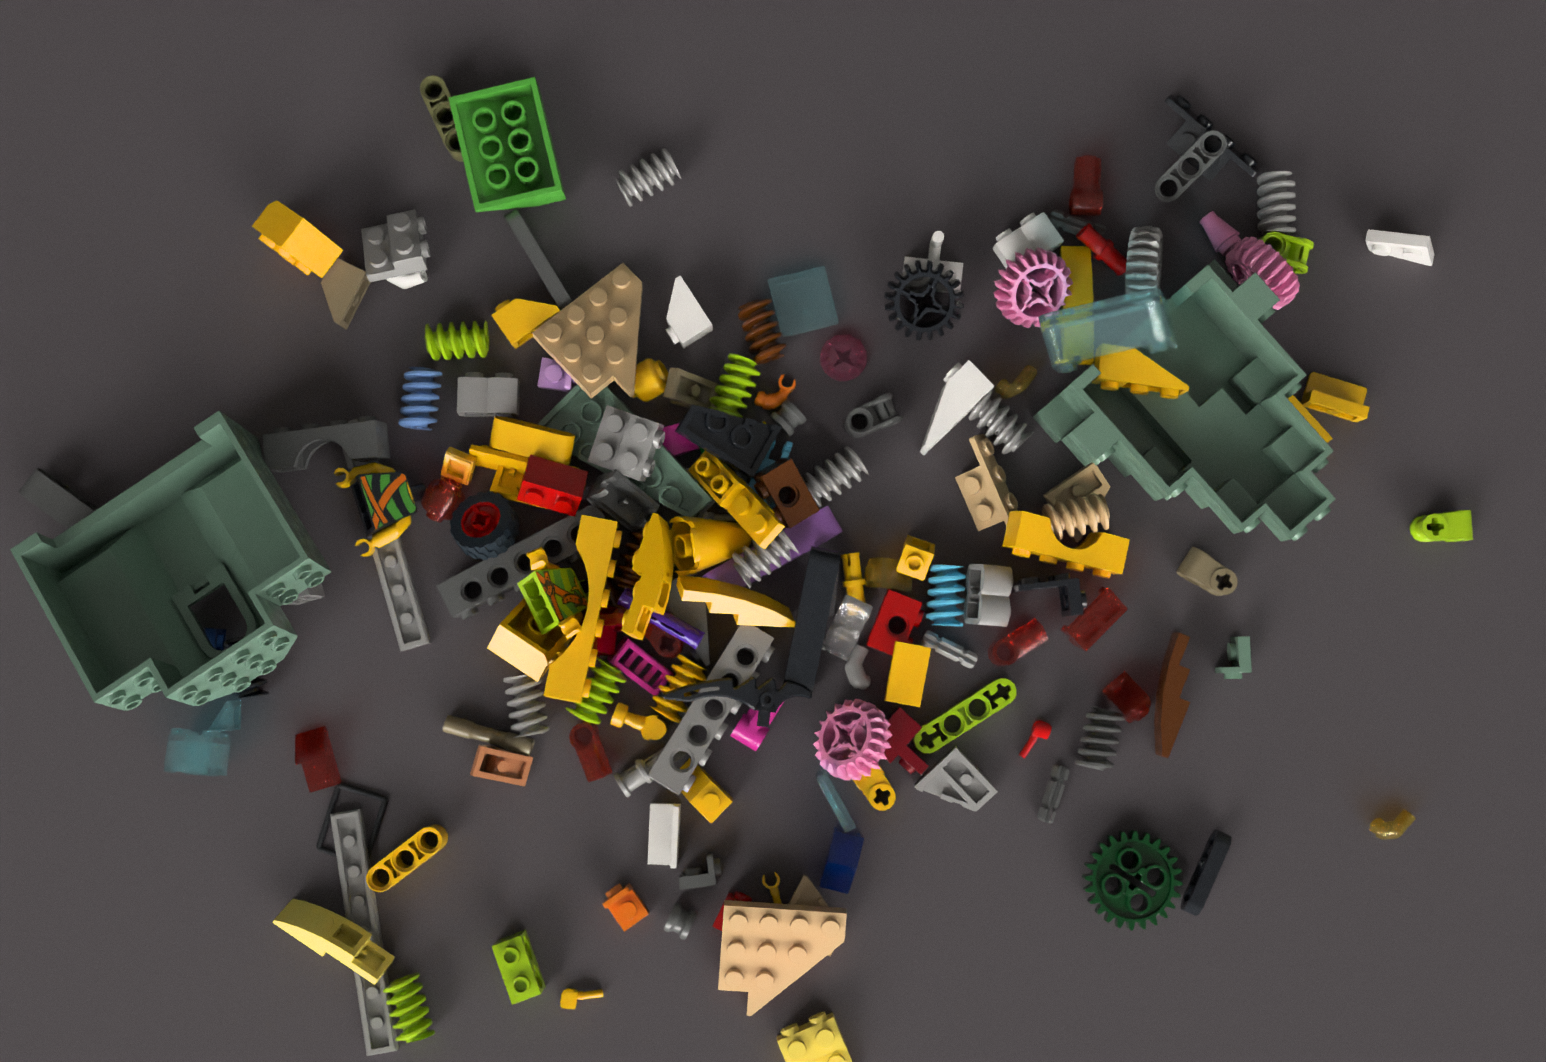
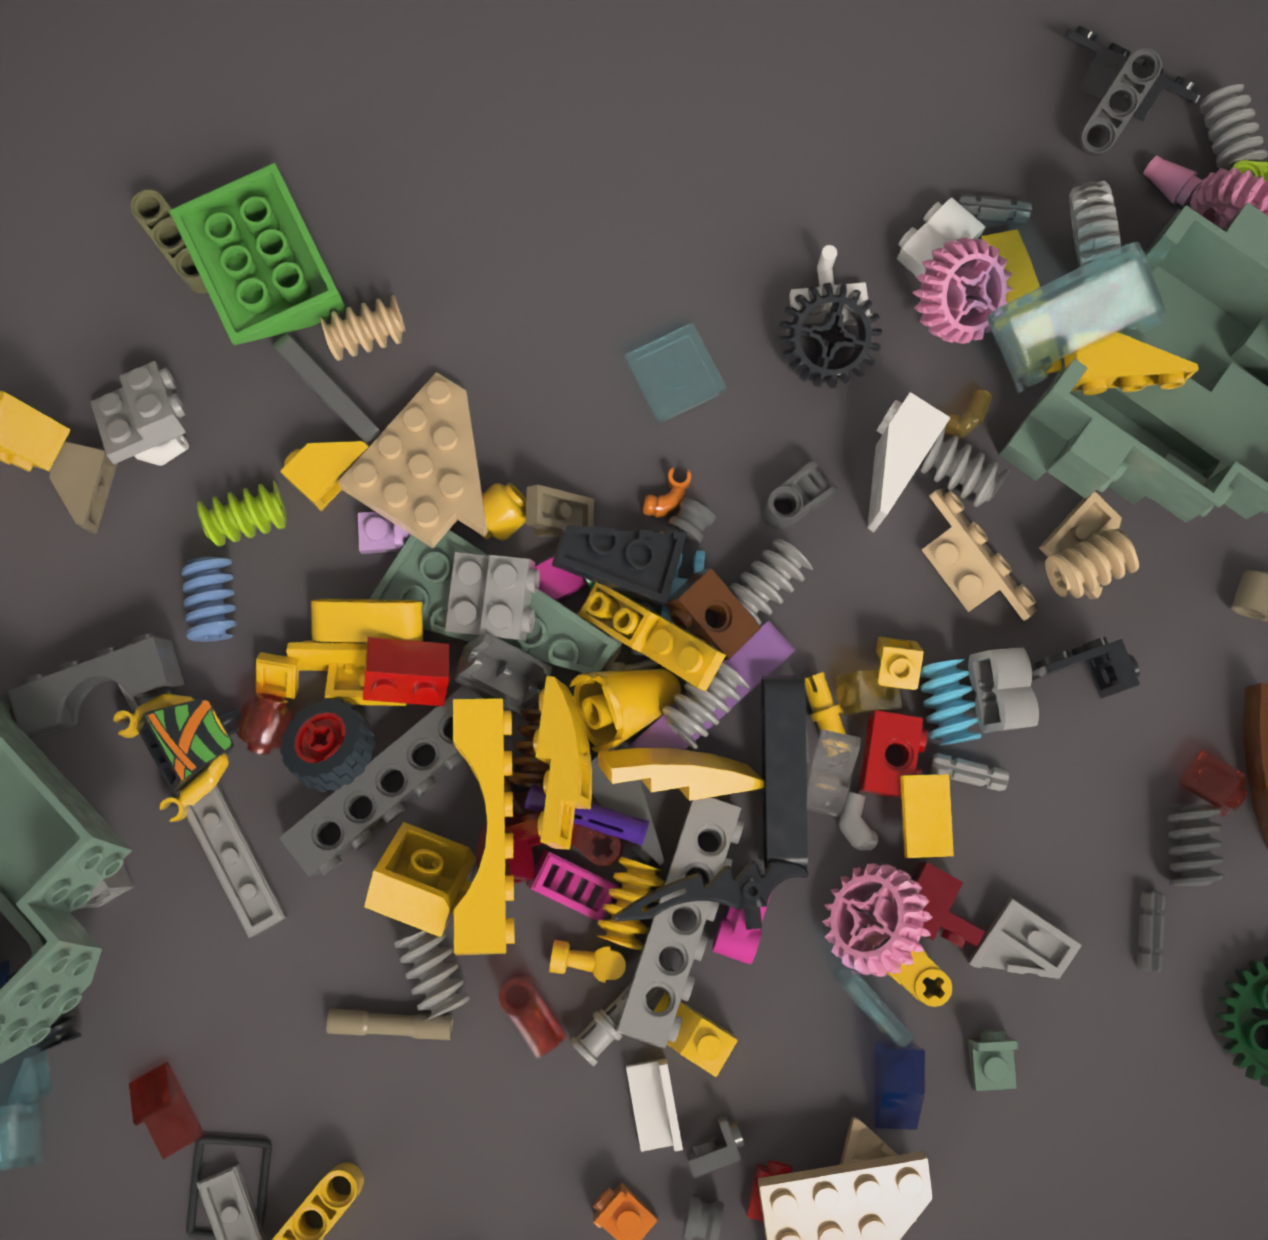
camera: 15 degrees left, 5 degrees down
(488, 396) = (297, 577): light grey brick -> none
(501, 765) = (415, 1061): nougat slope -> none
(554, 595) = (439, 815): torso -> none
(575, 218) = (364, 328): none -> tan piece
(601, 685) = (527, 921): lime piece -> none
(647, 176) = (444, 258): light grey piece -> none
(685, 316) = (532, 421): white slope -> none
(735, 385) = (613, 491): lime piece -> none
(761, 331) = (631, 419): reddish brown piece -> none
(774, 891) = (817, 1146): yellow hand -> none
(843, 371) = (748, 447): clear pink gear -> none
(914, 858) = (992, 1061): none -> sand green bracket
(966, 719) = (1013, 857): lime beam -> none
(1019, 642) = (1057, 744): clear red piece -> none
(1033, 534) = (1047, 599): yellow arch -> none
(1039, 729) = (1110, 851): red hand -> none
(1086, 194) = (996, 167): clear red piece -> none
(1095, 619) = (1147, 701): clear red hinge -> none
(1102, 249) = (1036, 228): red pin -> none

